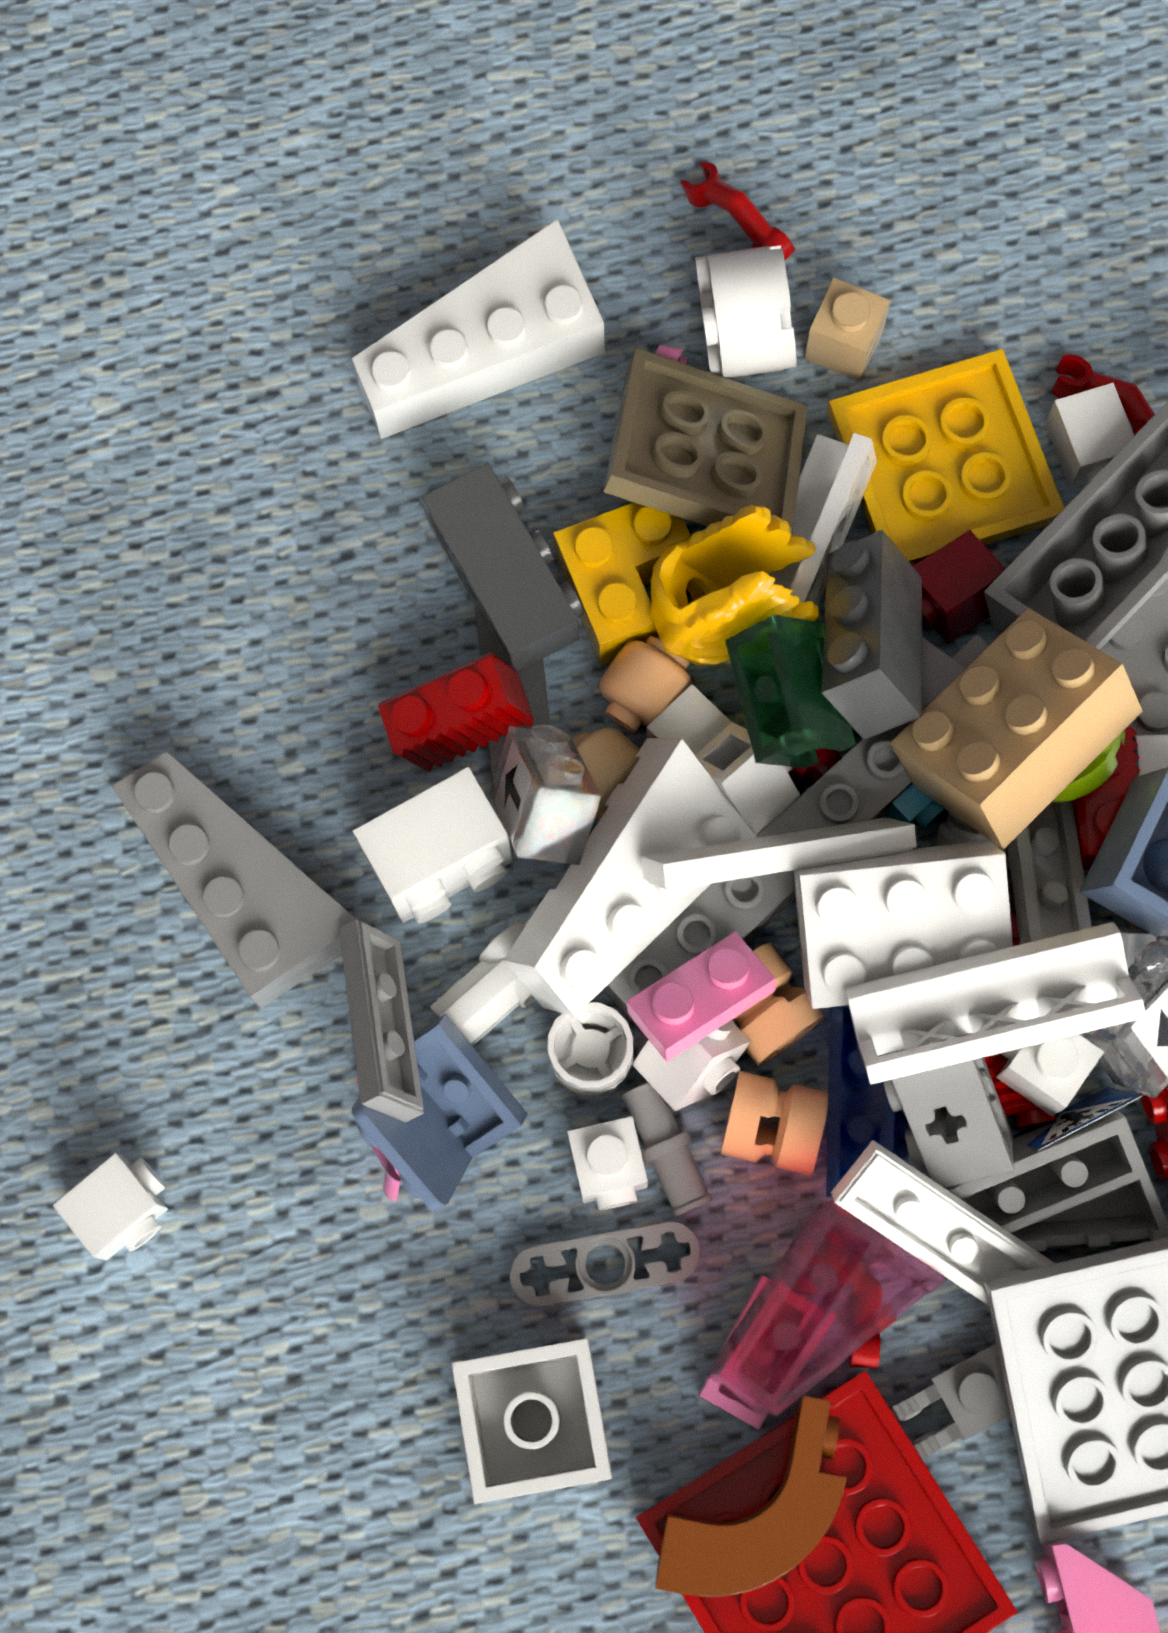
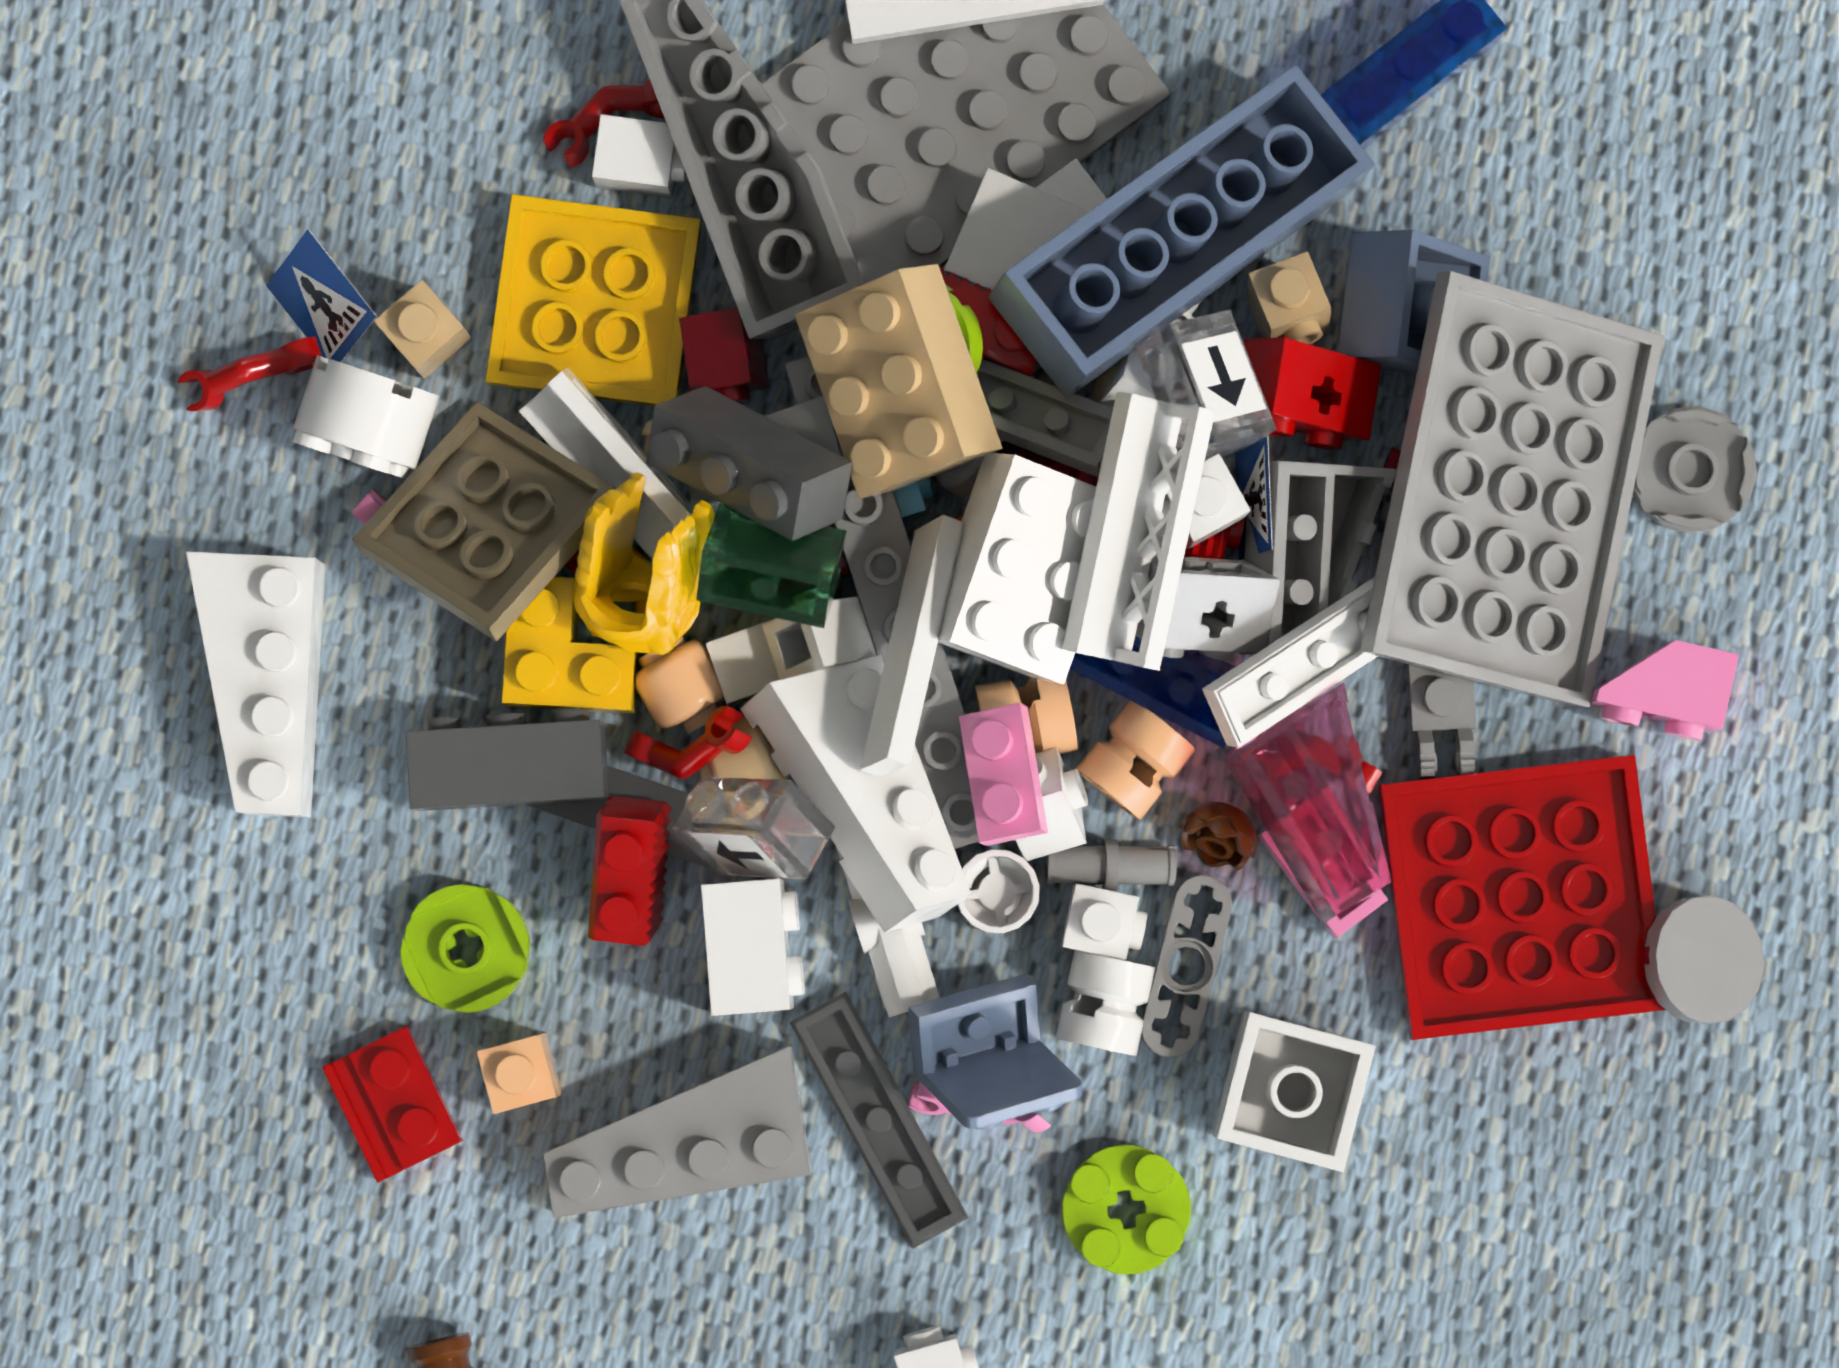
camera: 70 degrees left, 10 degrees up
(160, 616) = (392, 1104): none -> red plate
(233, 704) = (519, 1073): none -> light nougat brick
(314, 1070) = (879, 1120): none -> dark grey tile
(324, 579) = (454, 983): none -> lime plate
(381, 1022) = (891, 1067): light grey tile -> none
(389, 1321) = (1156, 1231): none -> lime plate
(534, 1201) = (1105, 1003): none -> white wheel
(610, 730) = (700, 752): none -> red arm
(743, 1237) = (1219, 835): none -> reddish brown plate
(758, 1549) = (1486, 935): dark orange arch -> none
(830, 235) = (321, 298): none -> blue sticker

